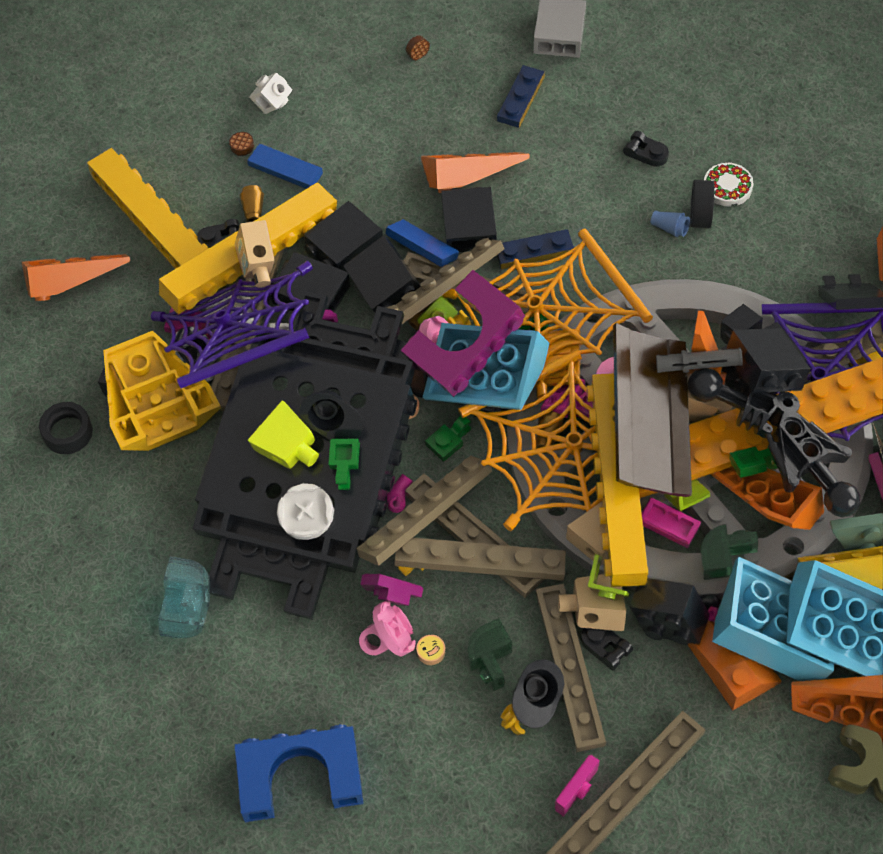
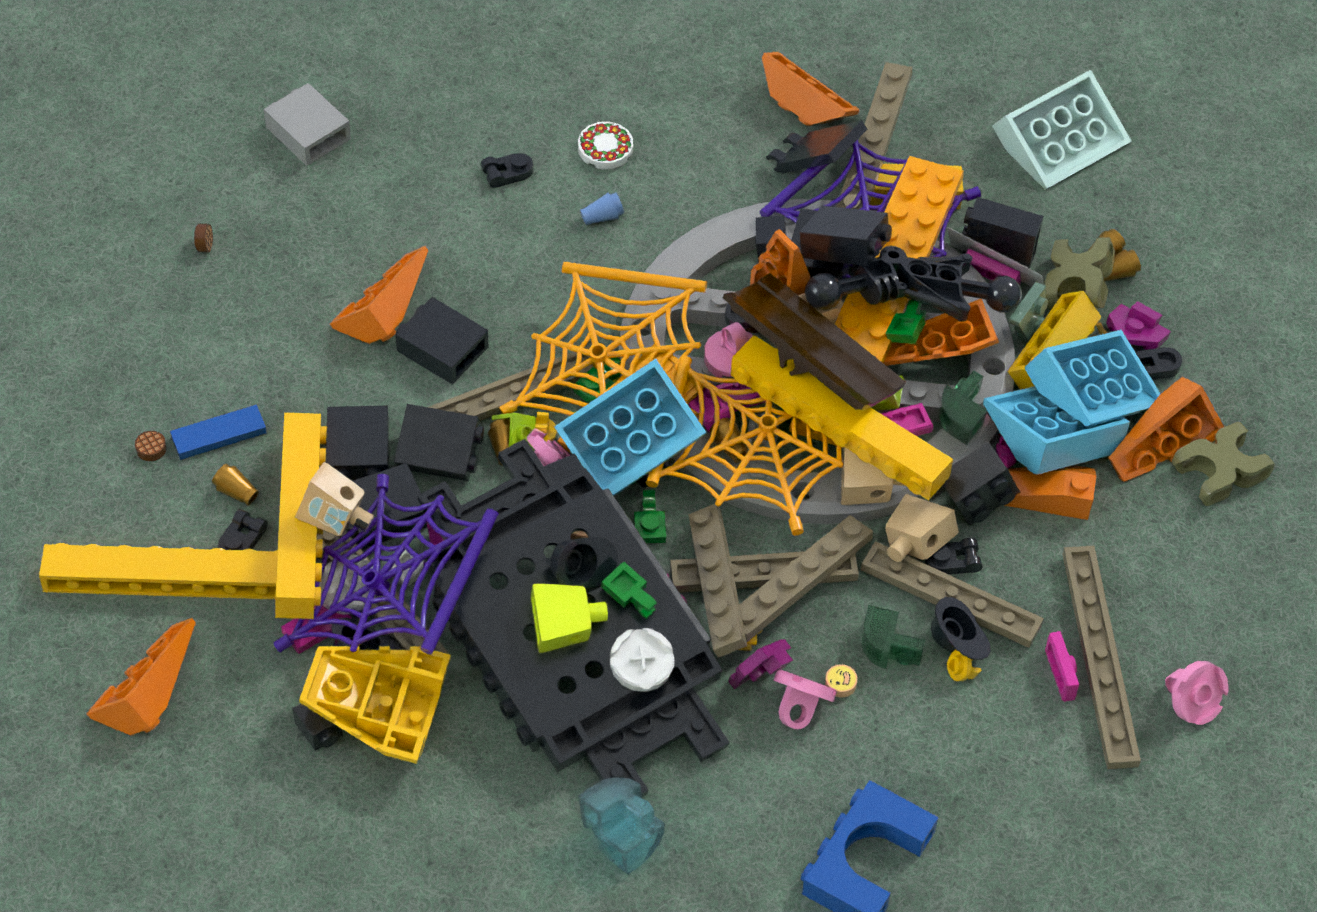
camera: 55 degrees left, 5 degrees down
(61, 411) = (327, 779): black tyre -> none
(270, 93) = (126, 379): white brick -> none
(422, 243) = (429, 390): blue tile -> none
(448, 277) = (497, 400): dark tan plate -> none
(455, 368) = (613, 372): magenta arch -> none
(521, 96) = (346, 208): dark blue plate -> none
(535, 248) = (521, 320): dark blue plate -> none
(604, 591) = (910, 509): lime bracket -> none
(699, 360) = (799, 281): dark grey pin -> none
(702, 204) = (614, 172): black tyre -> none

